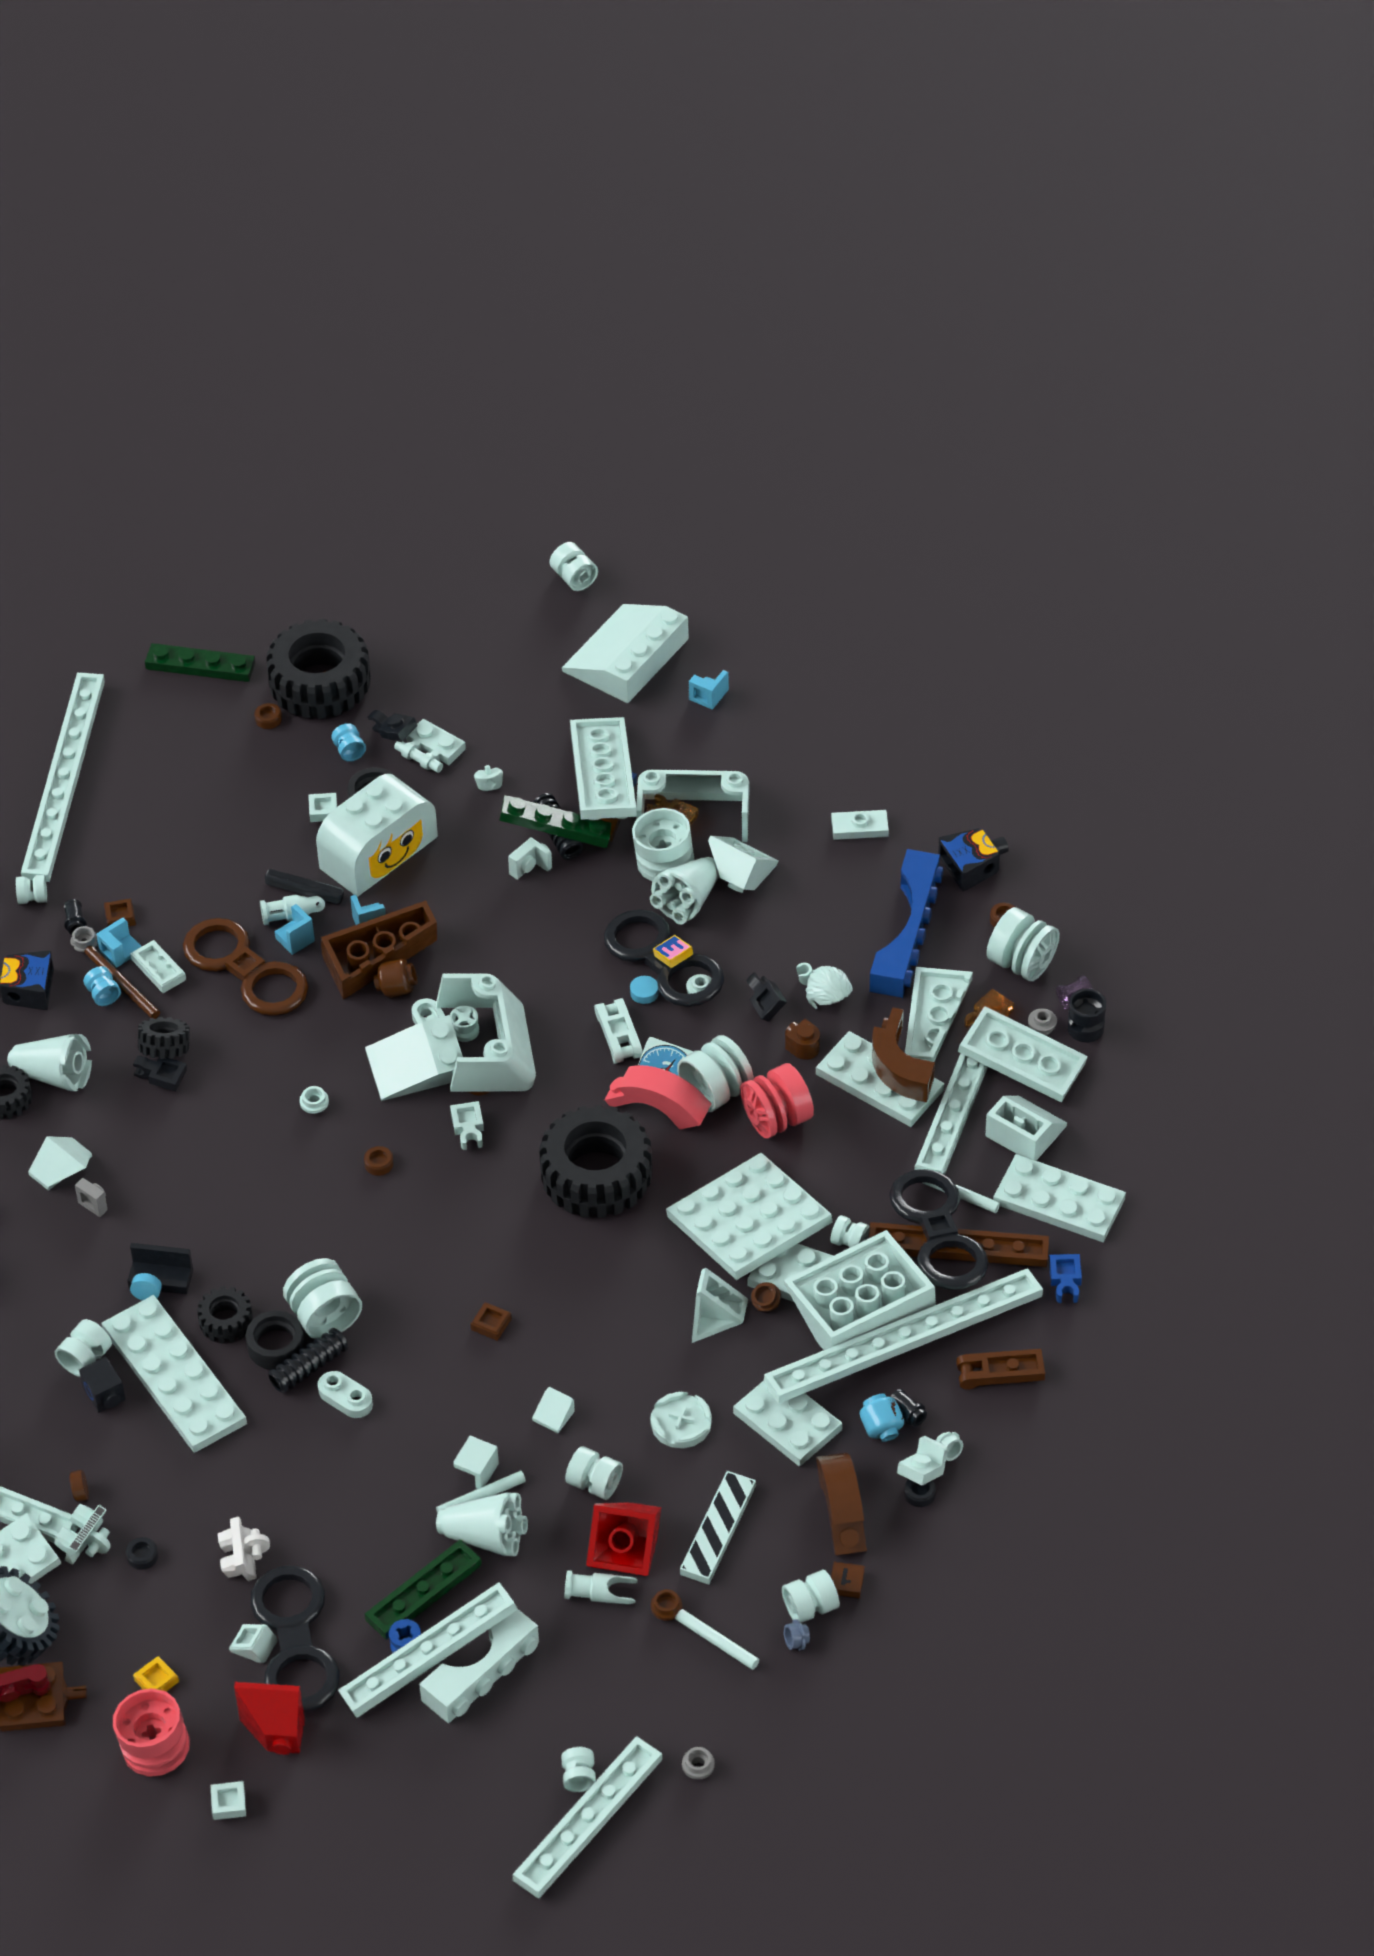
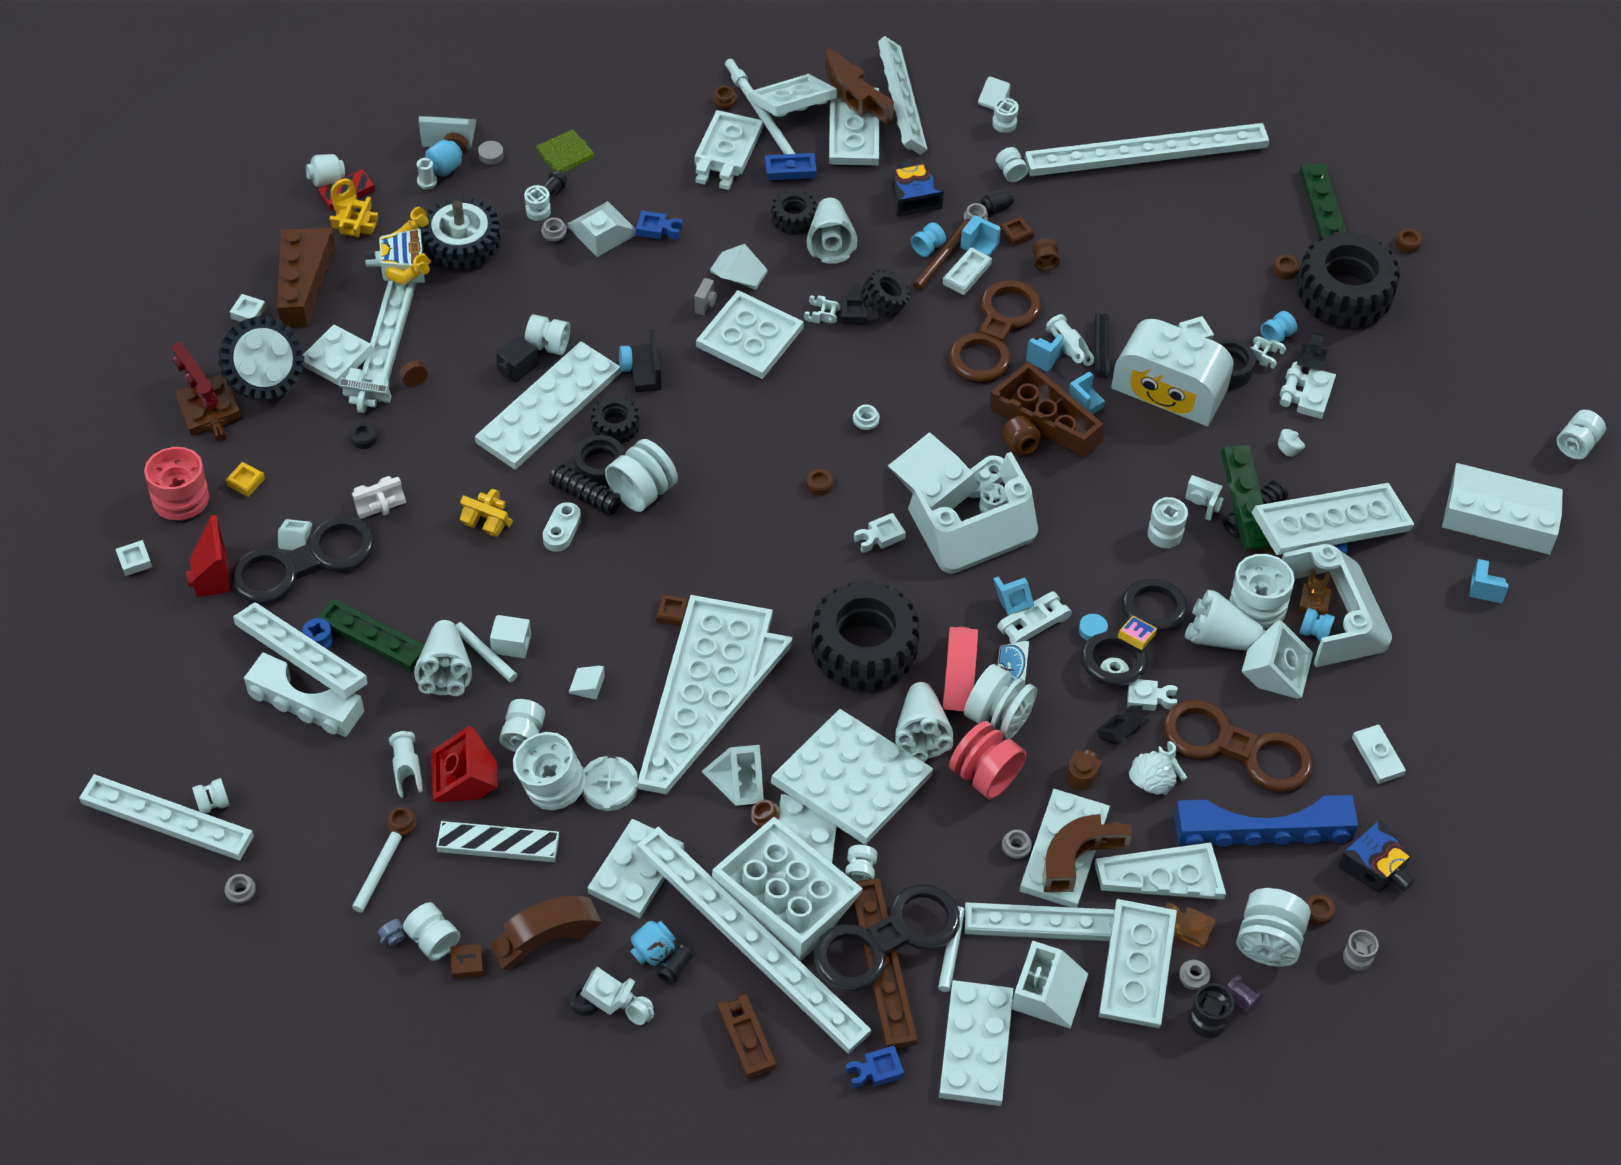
camera: 70 degrees right, 5 degrees up
(143, 1099) = (821, 315): none -> light aqua piece
(160, 1171) = (749, 334): none -> light aqua plate
(169, 895) = (1046, 254): none -> reddish brown wheel
(278, 614) = (1409, 240): none -> reddish brown tile
(296, 1464) = (495, 517): none -> yellow hips
(356, 764) = (1267, 346): none -> light aqua piece
(552, 893) = (1167, 522): none -> light aqua wheel
(587, 1301) = (713, 671): none -> light aqua wing
(593, 1035) = (1014, 595): none -> medium azure panel
(661, 1438) = (549, 771): none -> light aqua wheel
(710, 820) = (1316, 624): none -> medium azure wheel
(711, 1141) = (923, 724): none -> light aqua cone
(737, 969) = (1148, 695): none -> light aqua plate
(814, 921) = (1238, 745): none -> reddish brown bar
(861, 1106) = (1016, 837): none -> light grey plate
(1057, 897) = (1360, 943): none -> light grey wheel

